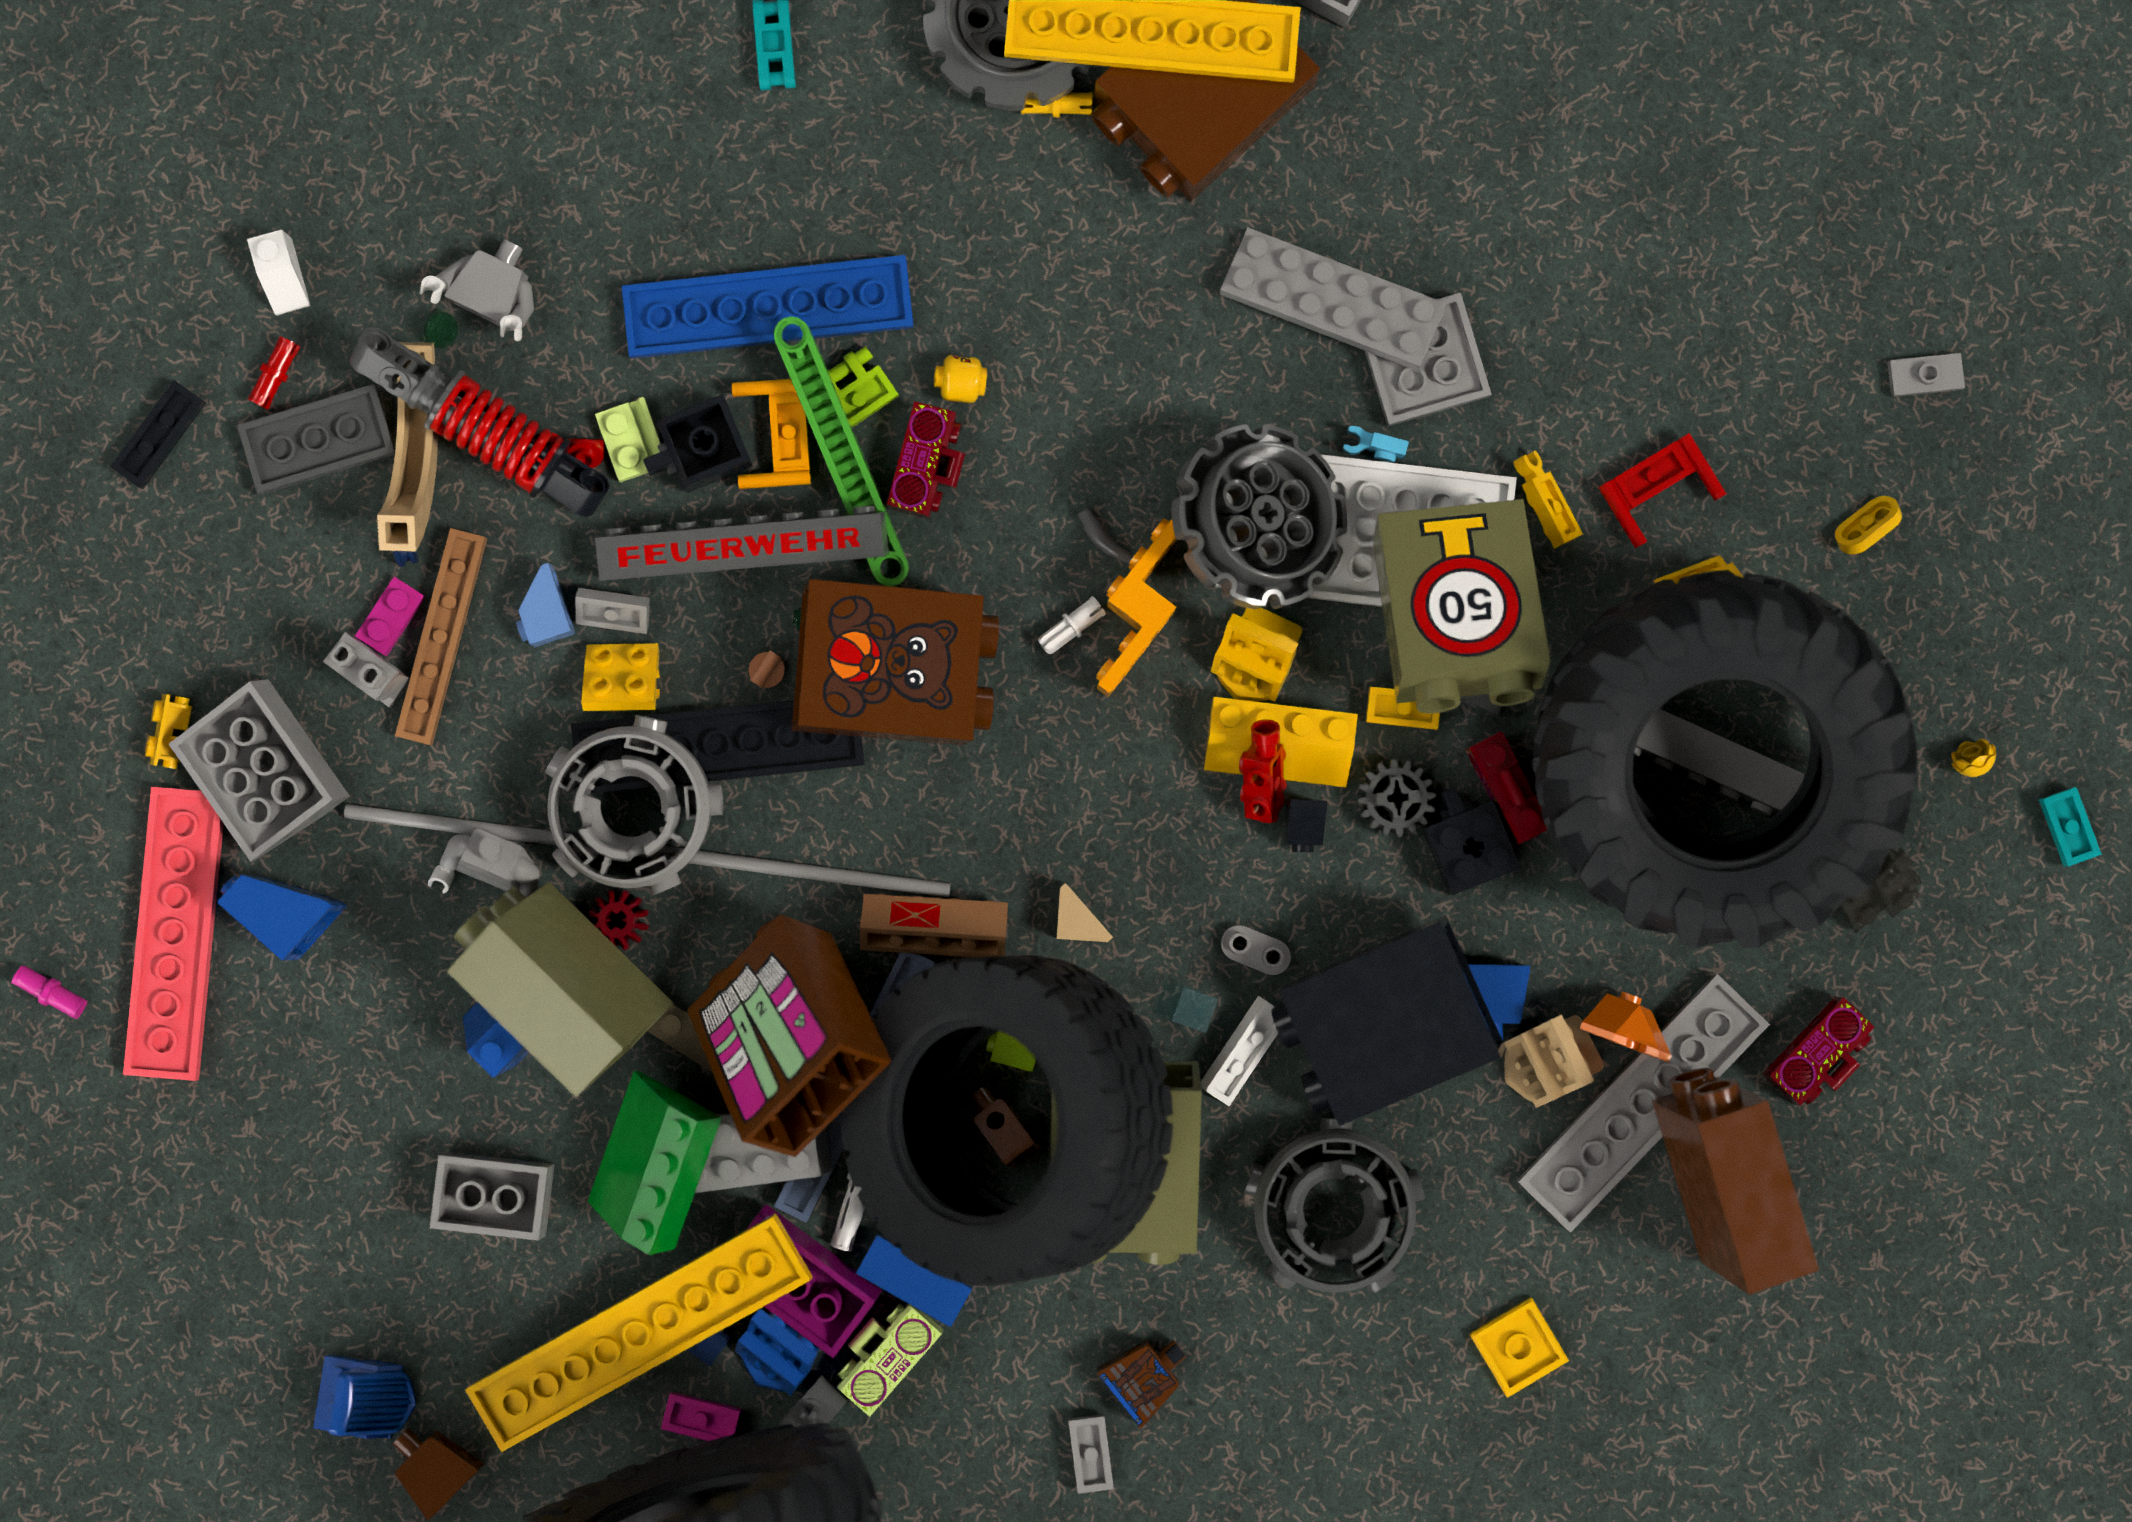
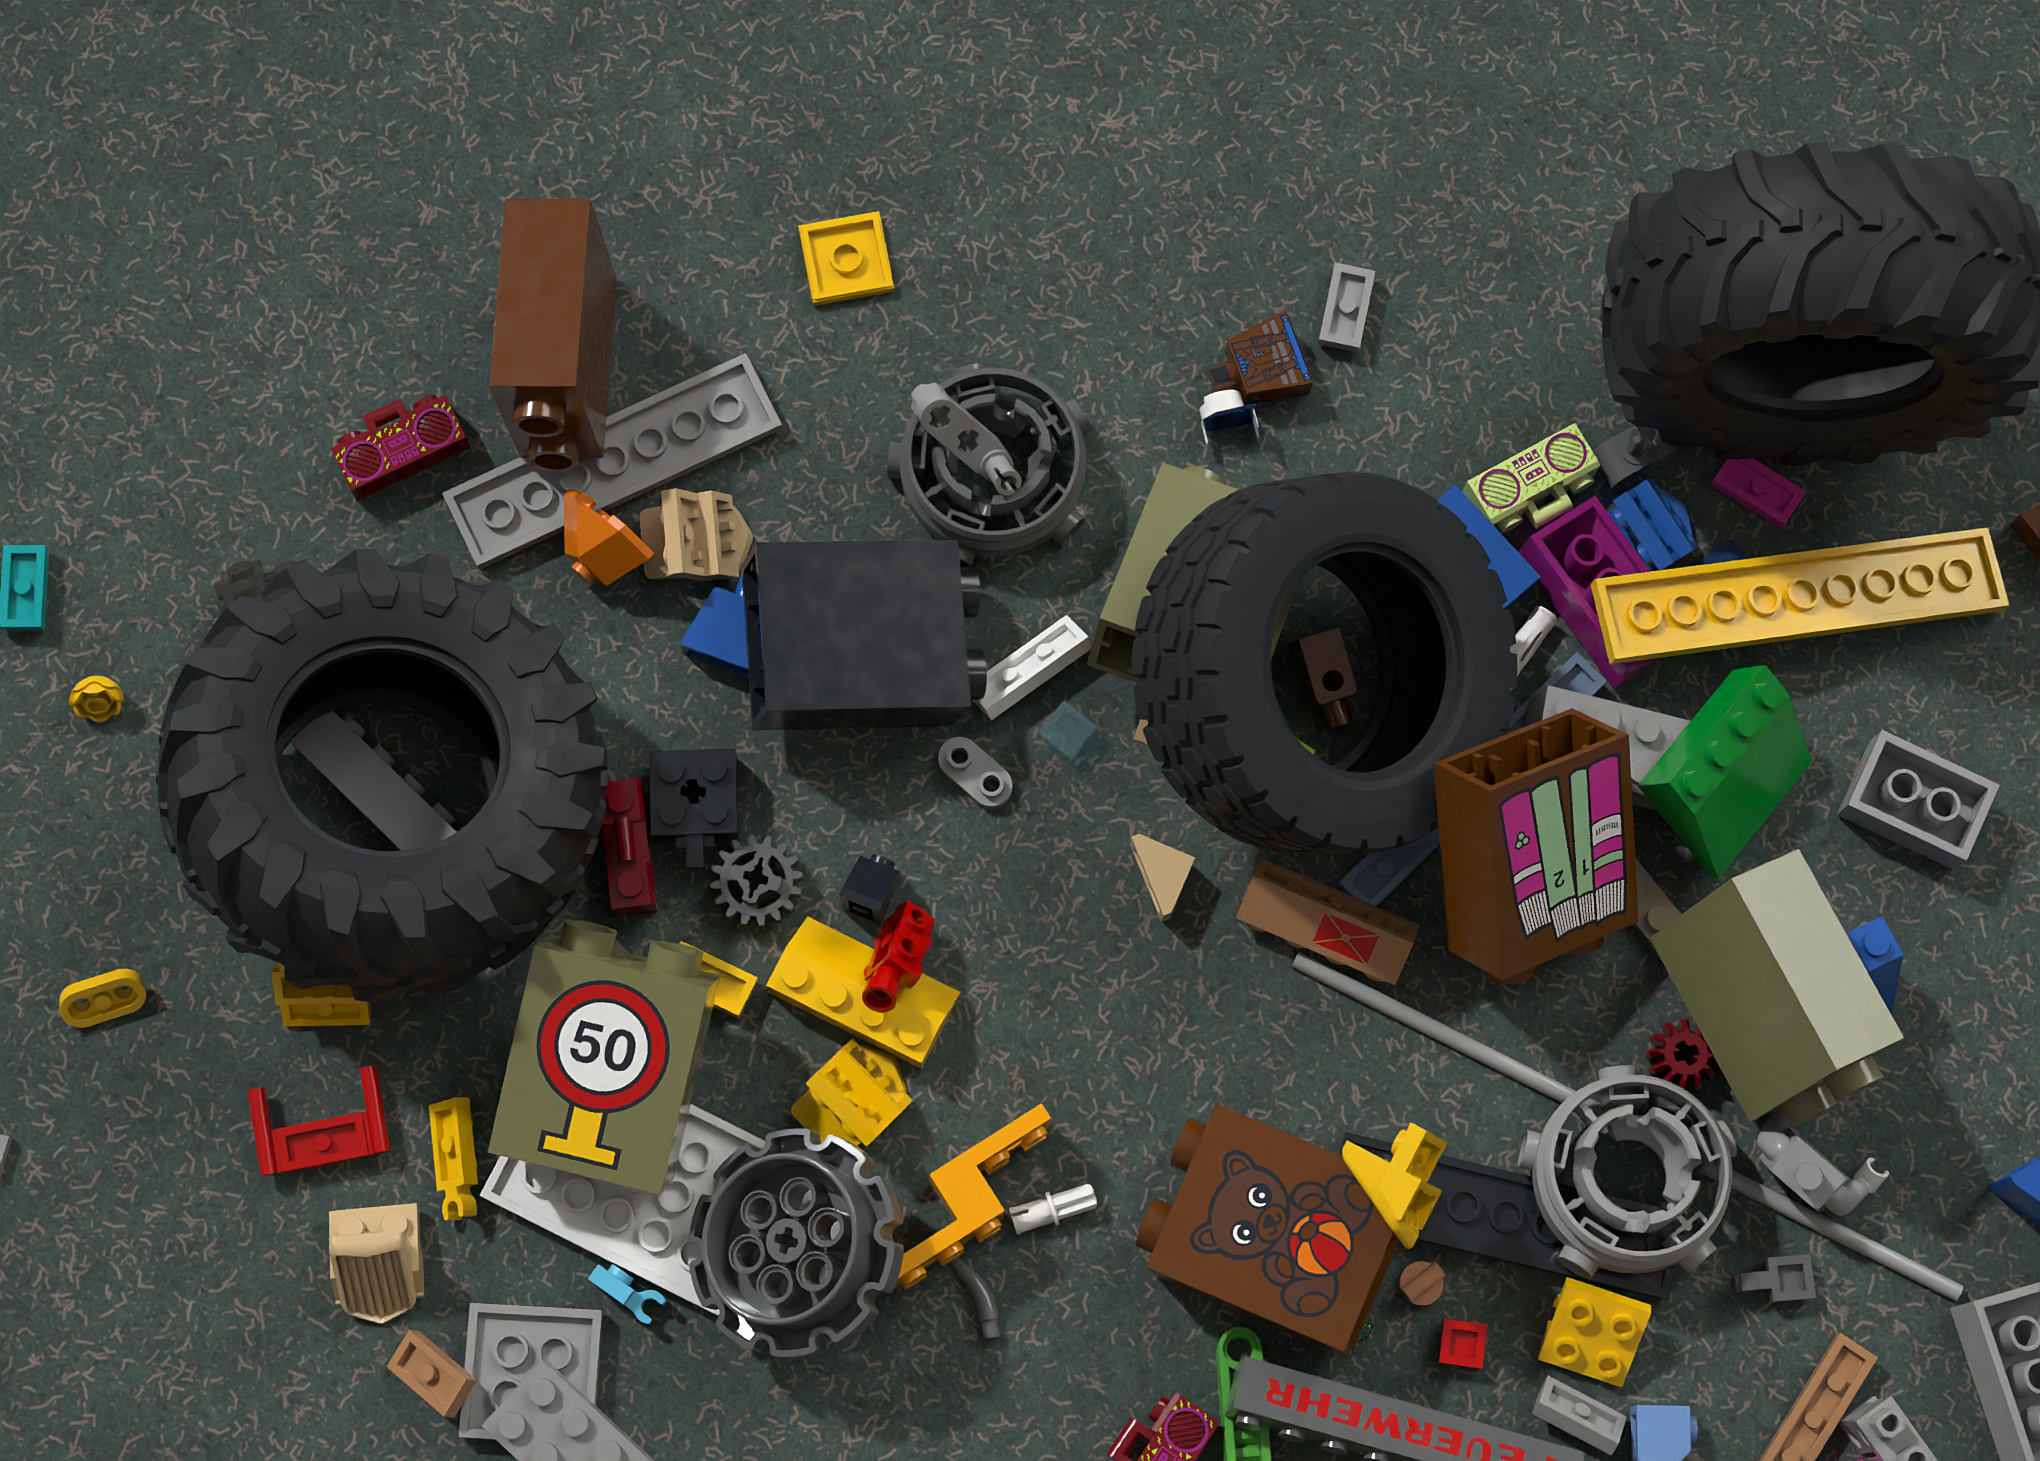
camera: 160 degrees left, 10 degrees down
(486, 772) = (1784, 1279): none -> dark grey plate
(720, 633) = (1462, 1344): none -> red plate
(810, 717) = (1400, 1186): none -> yellow piece
(1160, 1325) = (1225, 411): none -> piece
(1344, 1210) = (948, 419): none -> light grey beam
(1499, 331) = (431, 1373): none -> medium nougat plate
(1575, 401) = (376, 1261): none -> tan piece

